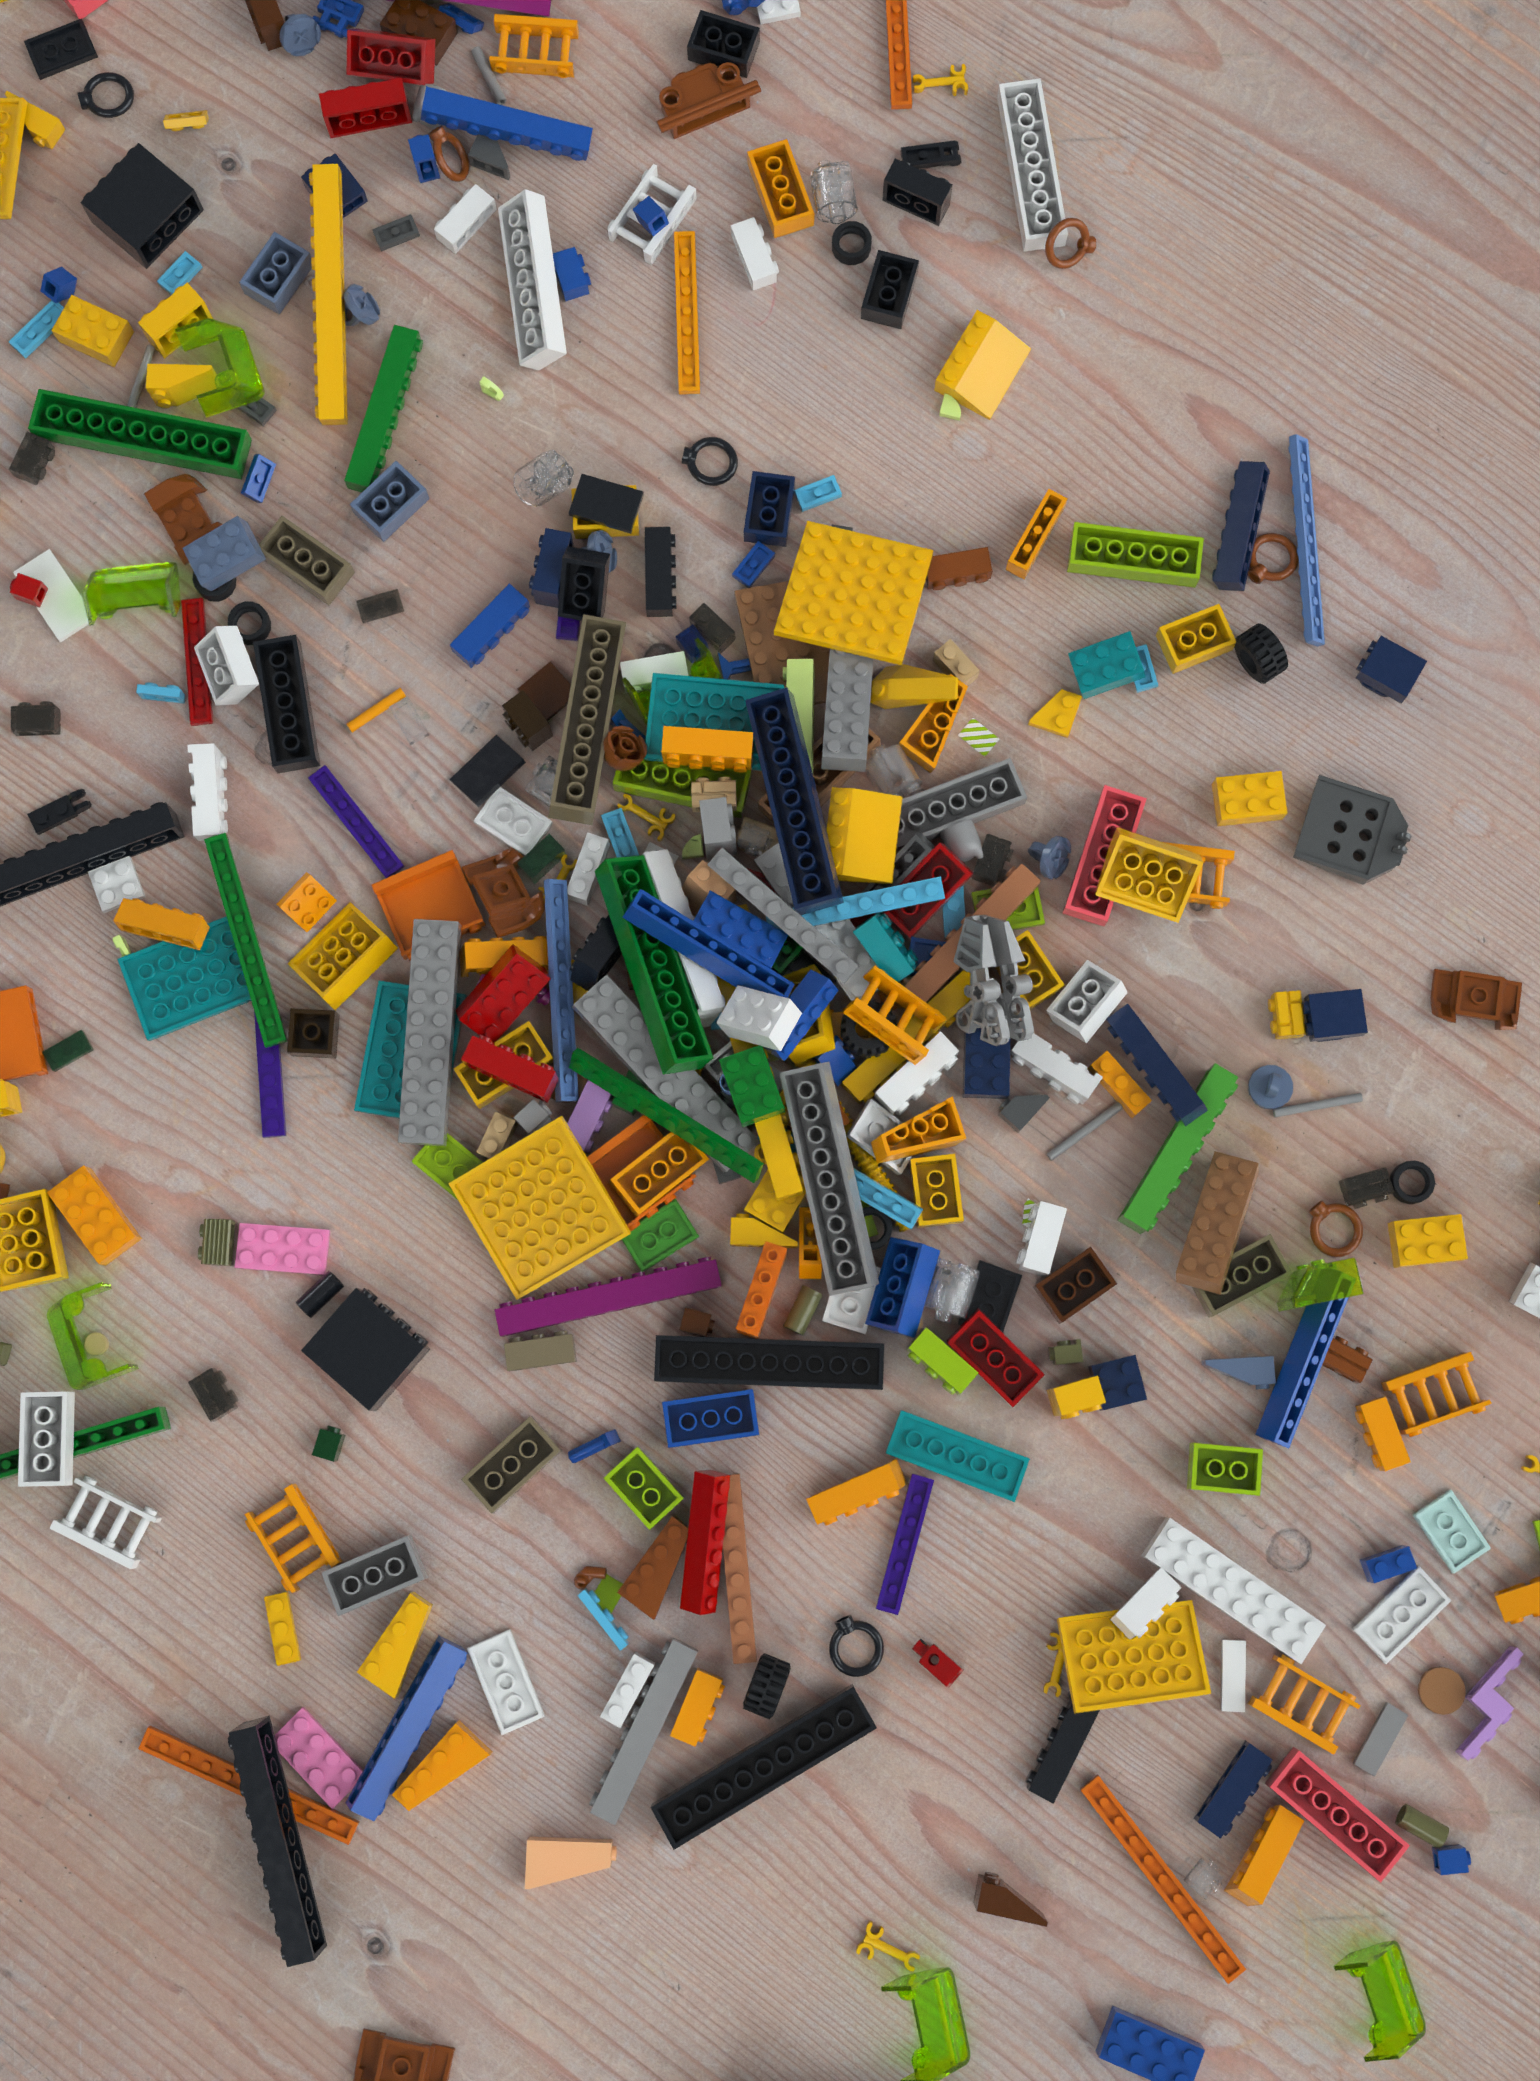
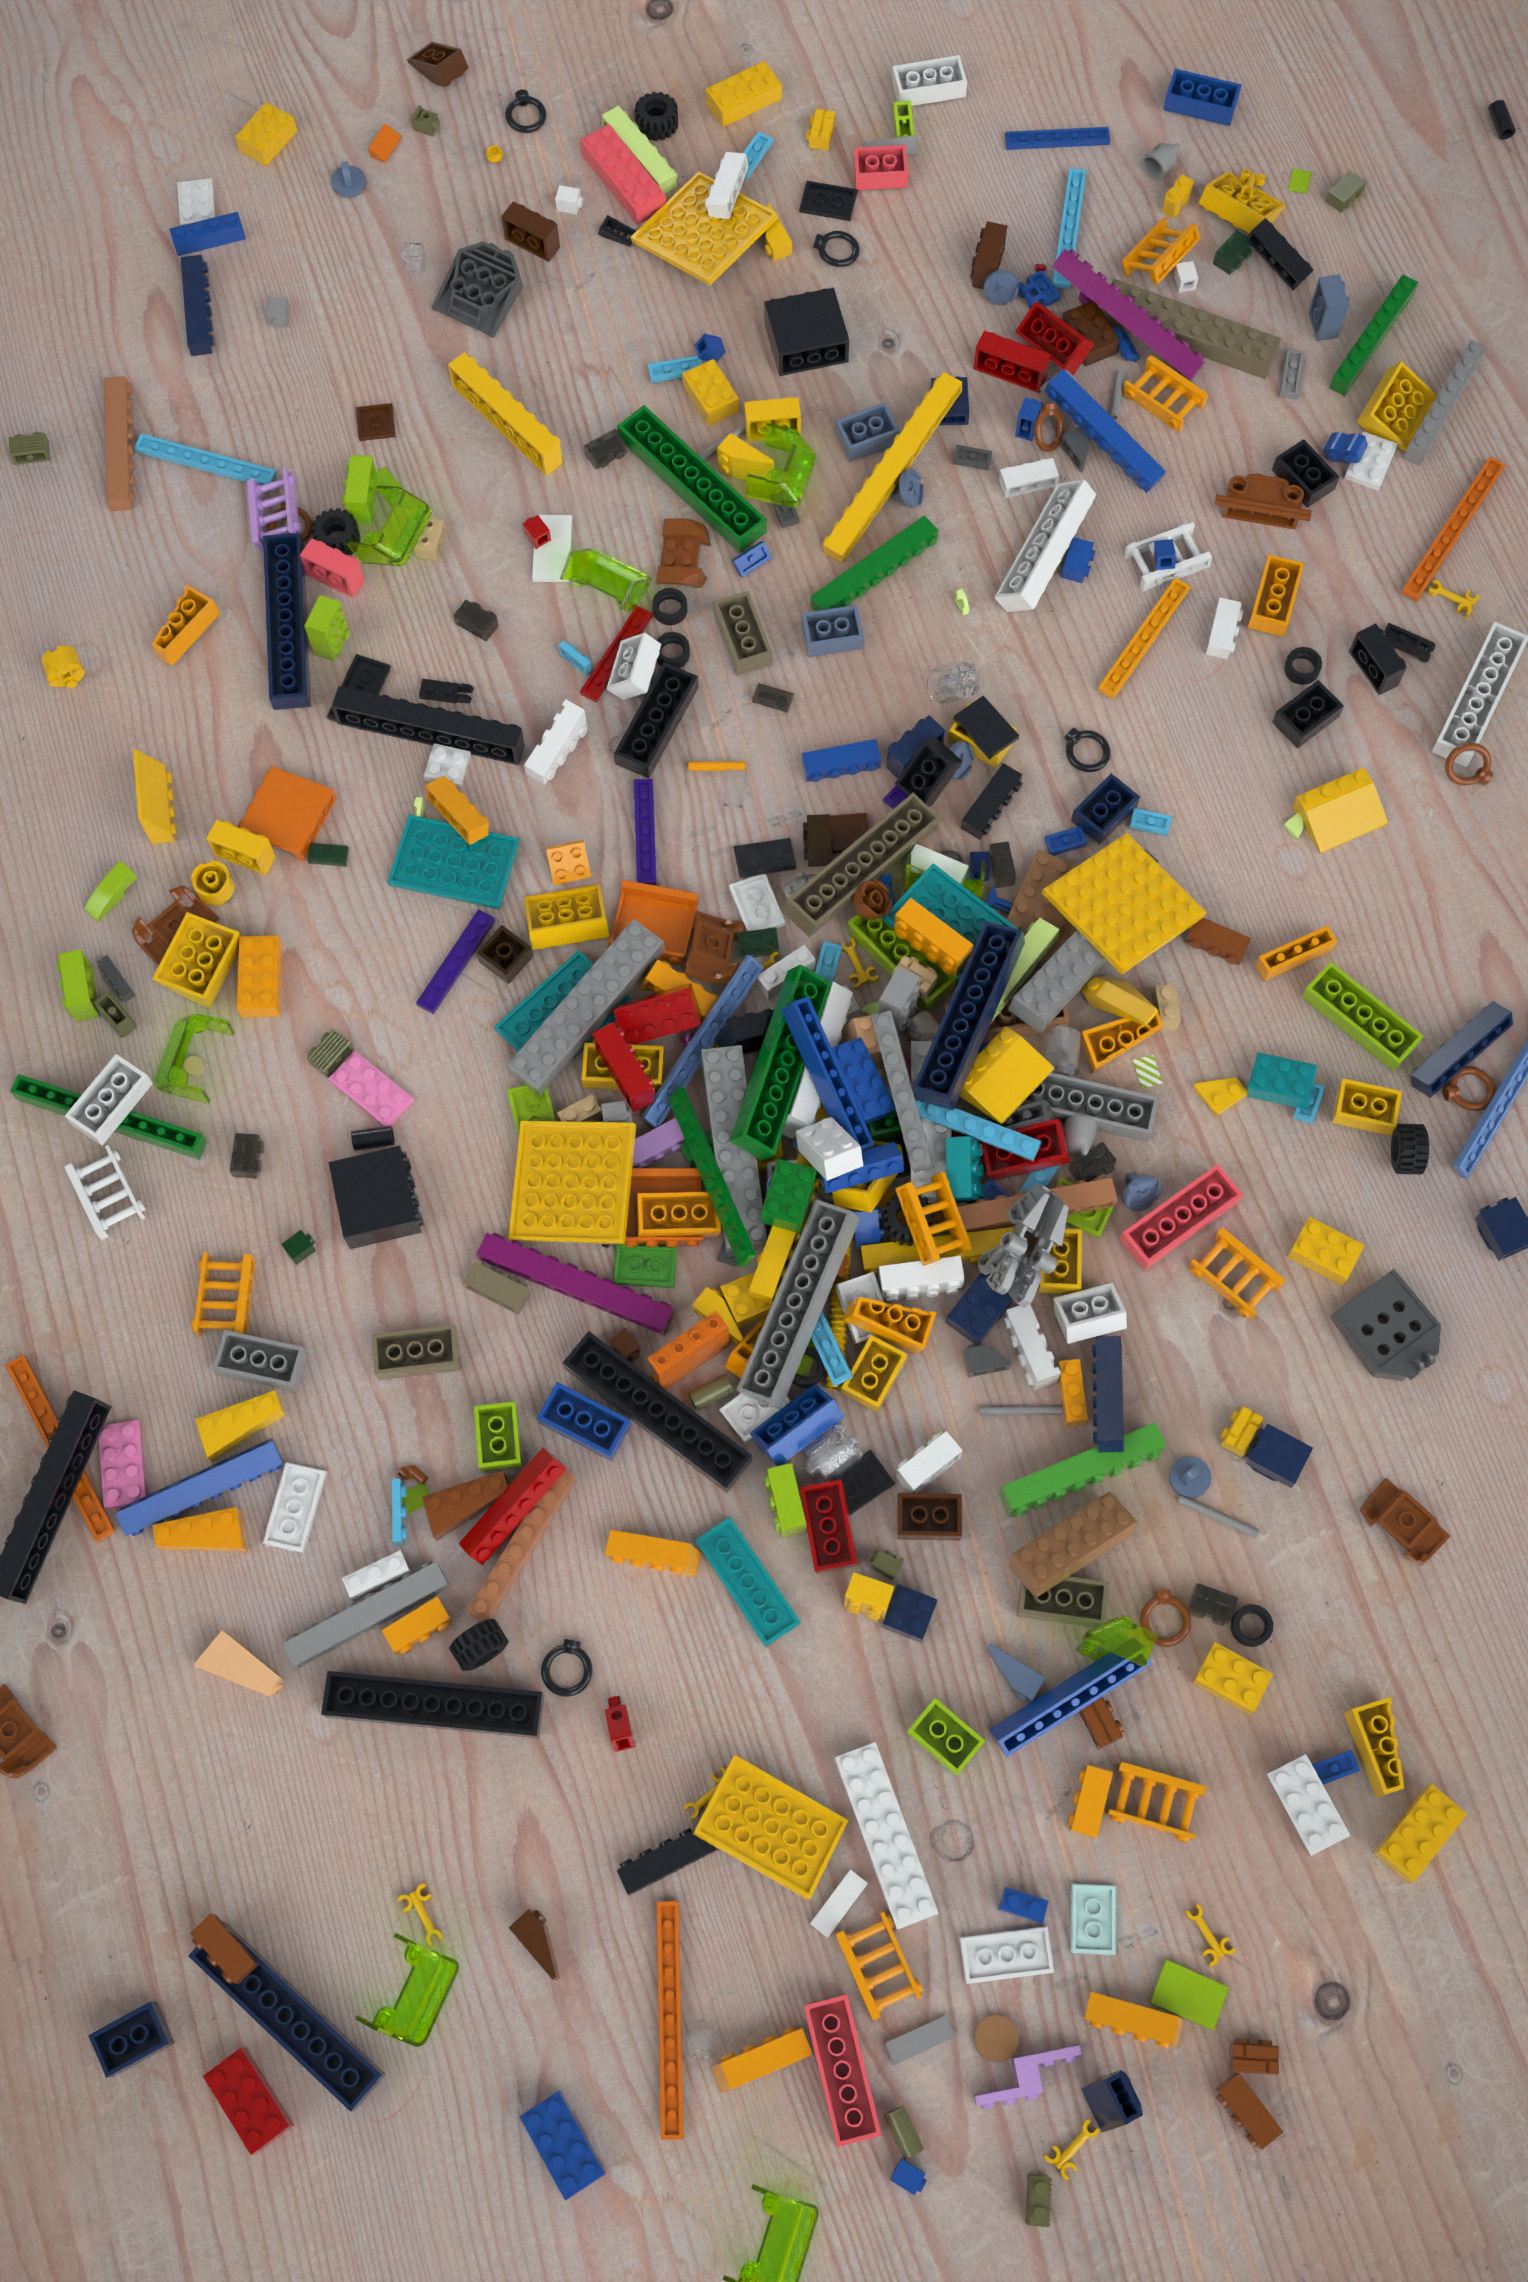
camera: 35 degrees right, 10 degrees down
(179, 273) = (804, 390): medium azure plate -> none
(180, 120) = (872, 293): yellow plate -> none
(224, 553) = (688, 590): sand blue brick -> none
(246, 940) = (506, 859): green plate -> none
(282, 1628) = (168, 1354): yellow plate -> none
(596, 1445) = (495, 1383): blue piece -> none
(833, 191) = (1314, 621): clear cylinder -> none
(904, 1544) = (659, 1618): dark purple plate -> none
(1146, 1604) = (809, 1793): white brick -> none
(1148, 875) = (1203, 1250): yellow slope -> none
(1233, 1789) = (775, 1990): dark blue brick -> none

